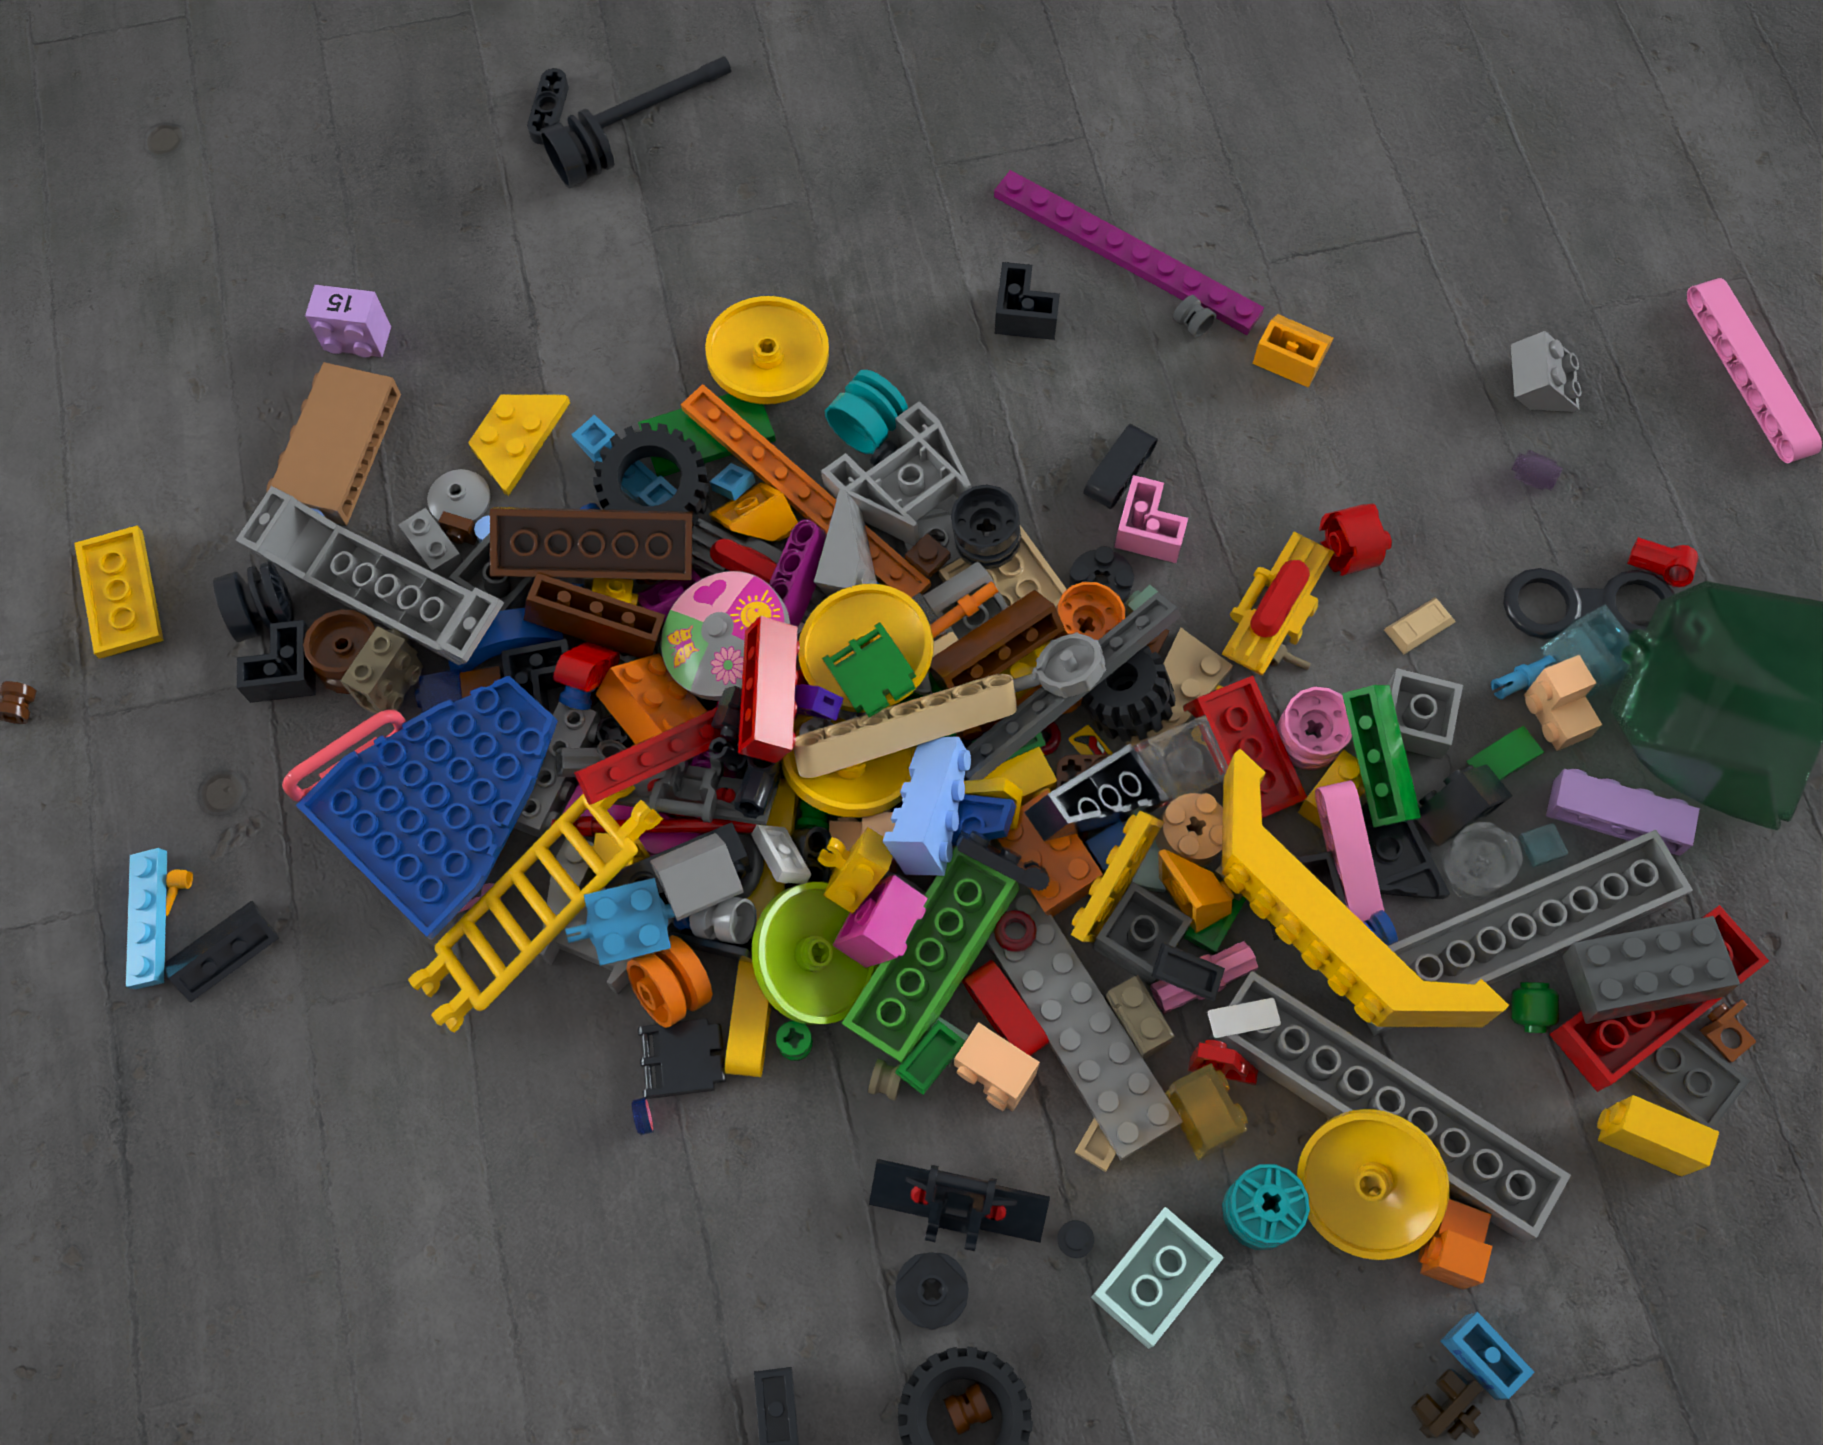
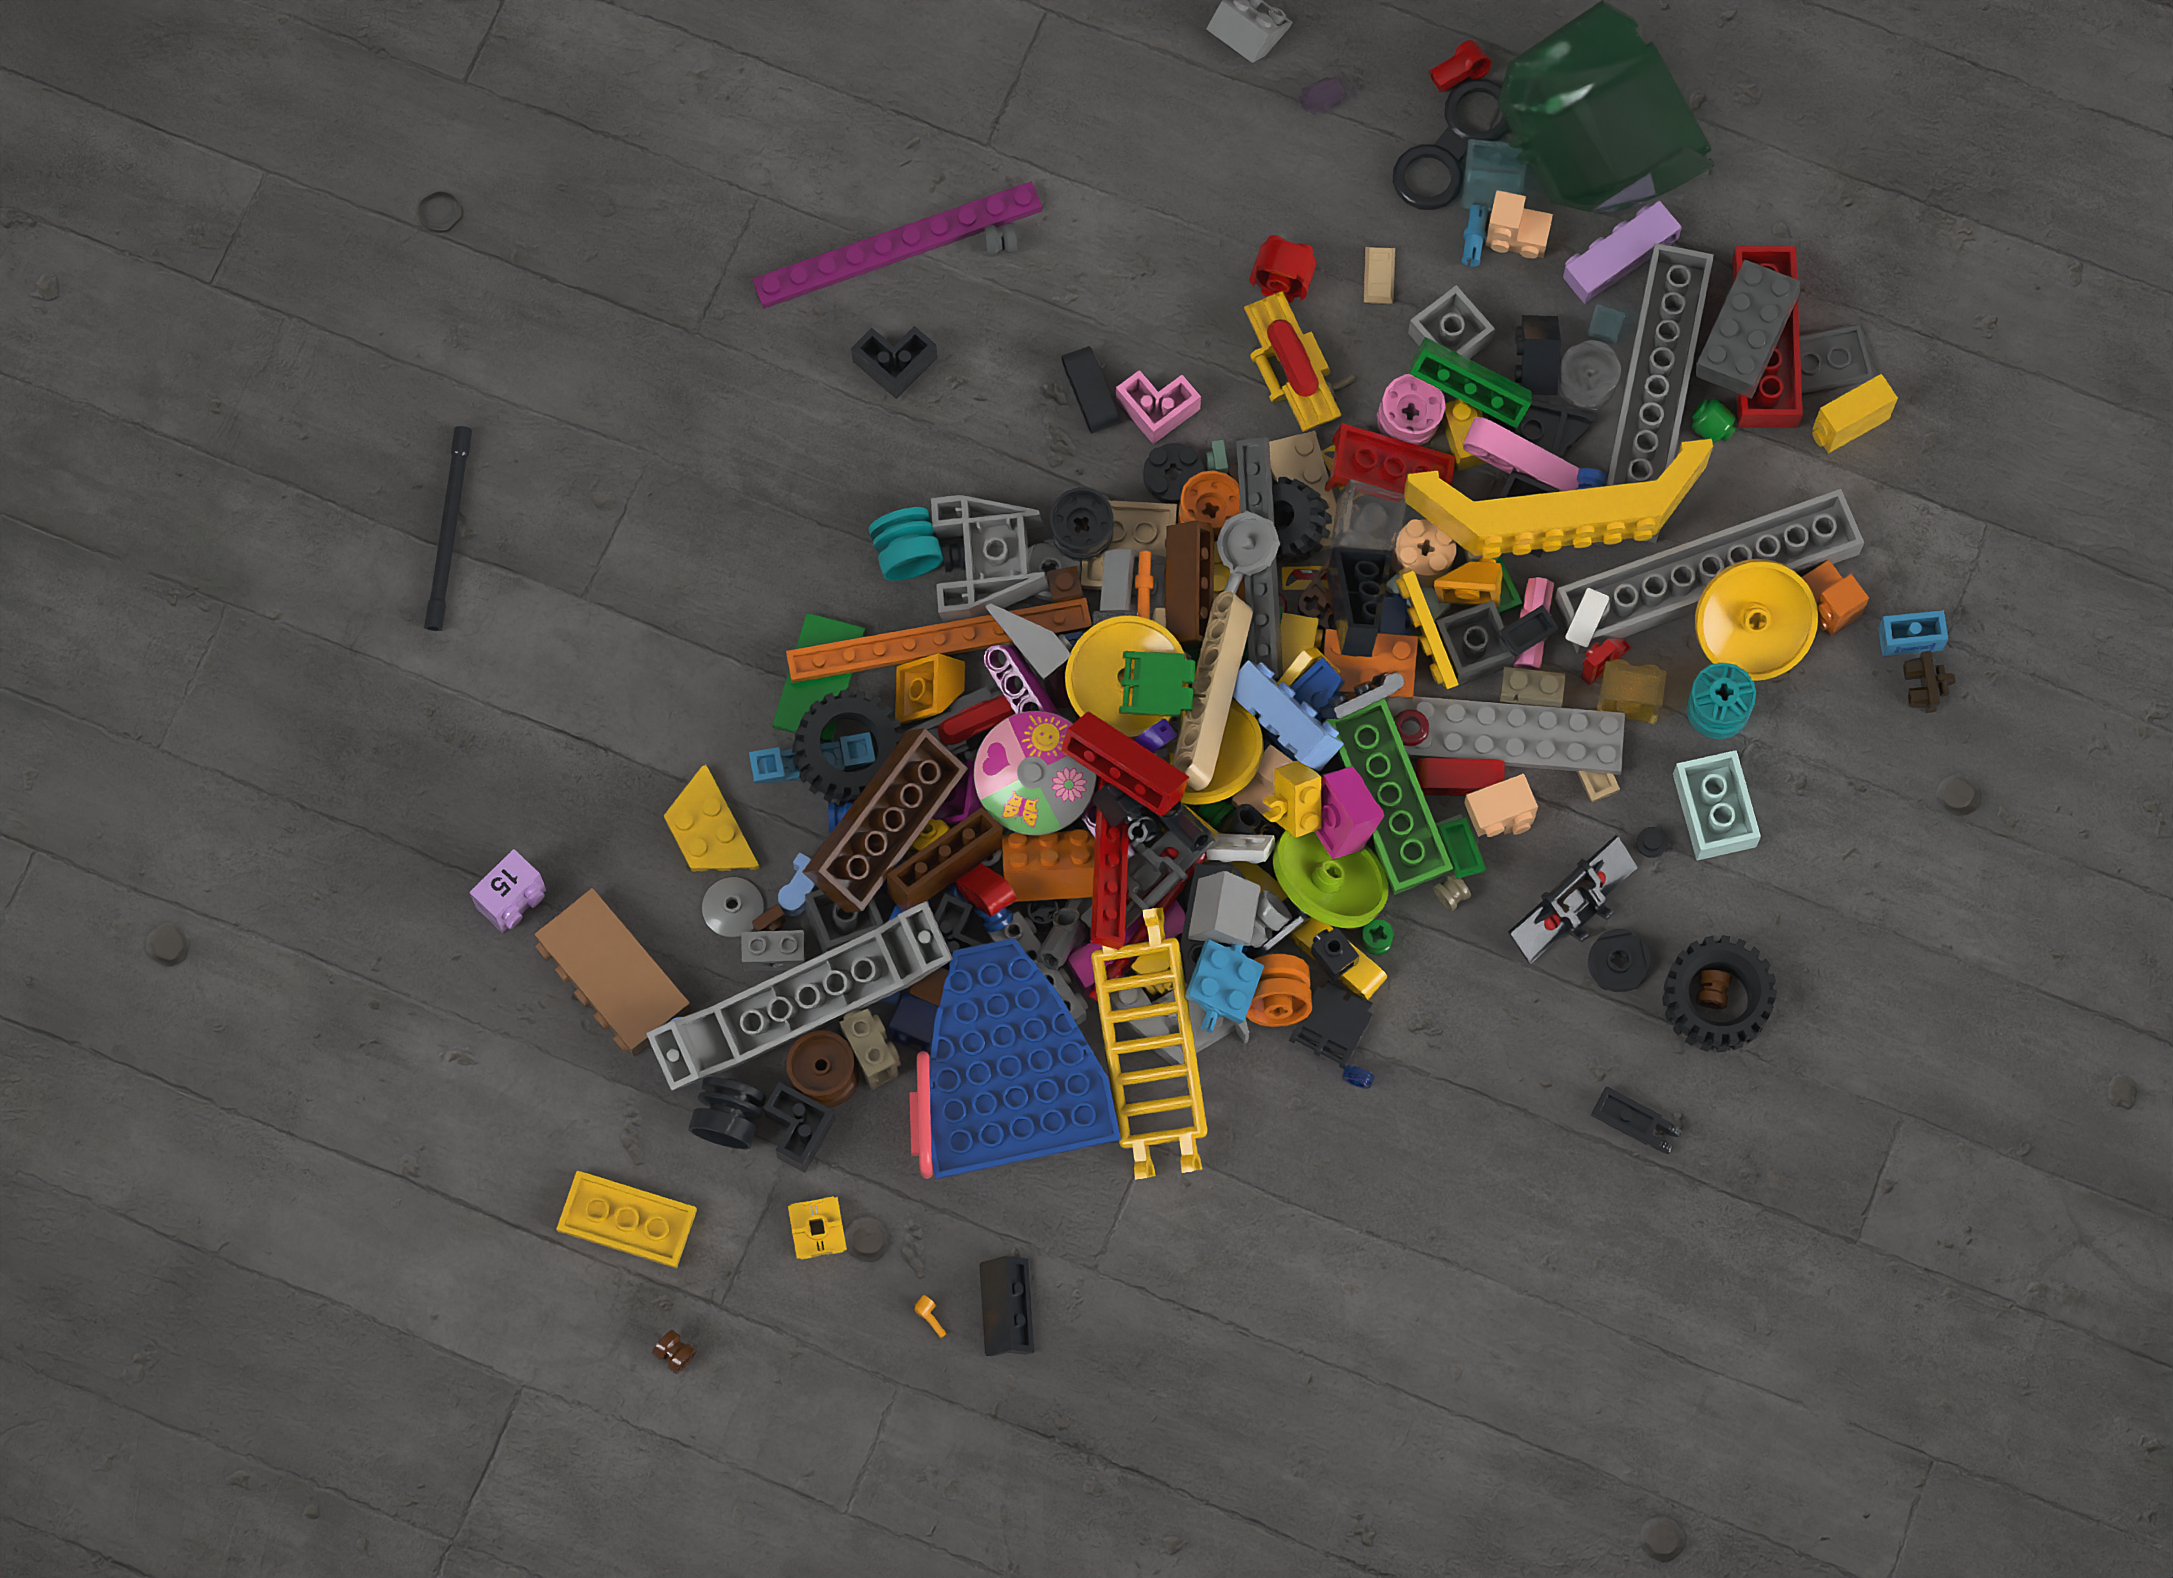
camera: 55 degrees left, 5 degrees up
(146, 919) = (940, 1347): medium azure plate -> none
(184, 741) = (803, 1214): none -> yellow piece
(543, 95) = (382, 582): black beam -> none
(580, 147) = (471, 605): black wheel -> none
(732, 481) = (885, 686): dark azure plate -> none
(739, 1008) = (1334, 953): none -> black brick
(767, 350) = (786, 581): yellow dish -> none
(1292, 350) = (1087, 188): light orange slope -> none
(1508, 753) = (1523, 294): green slope -> none
(1723, 1018) = (1808, 306): dark orange bracket -> none

